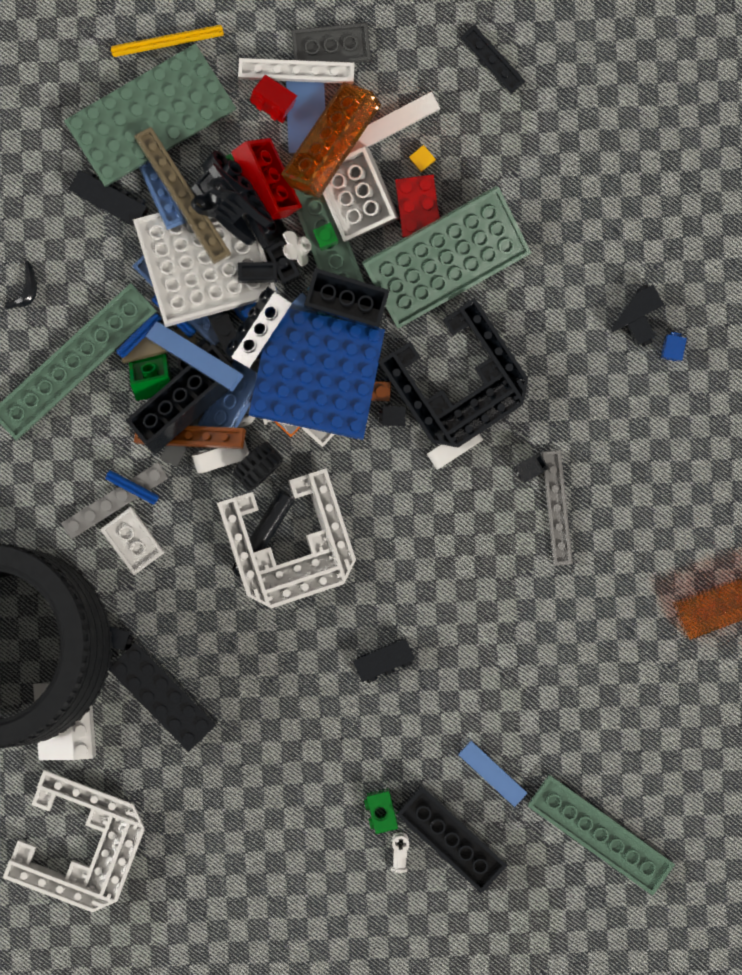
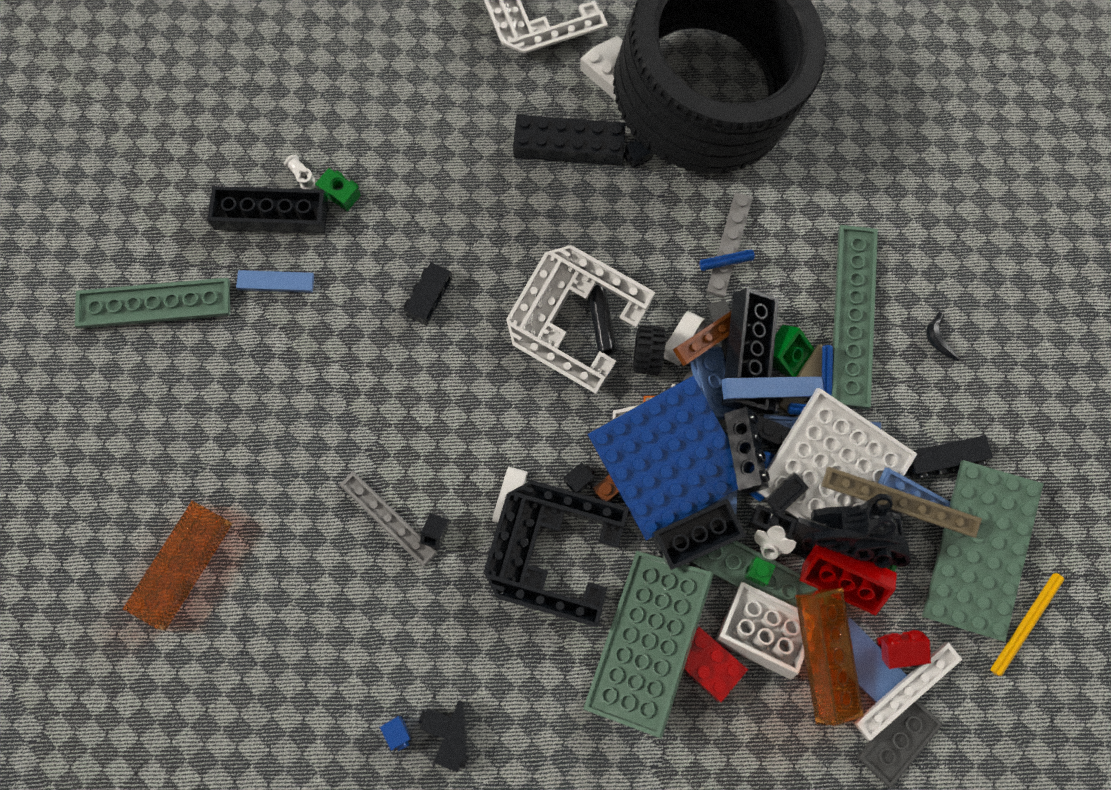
camera: 135 degrees right, 15 degrees down
(132, 540) = (690, 227): white tile -> none
(397, 121) = (789, 723): white tile -> none
(422, 158) = (741, 710): yellow tile -> none

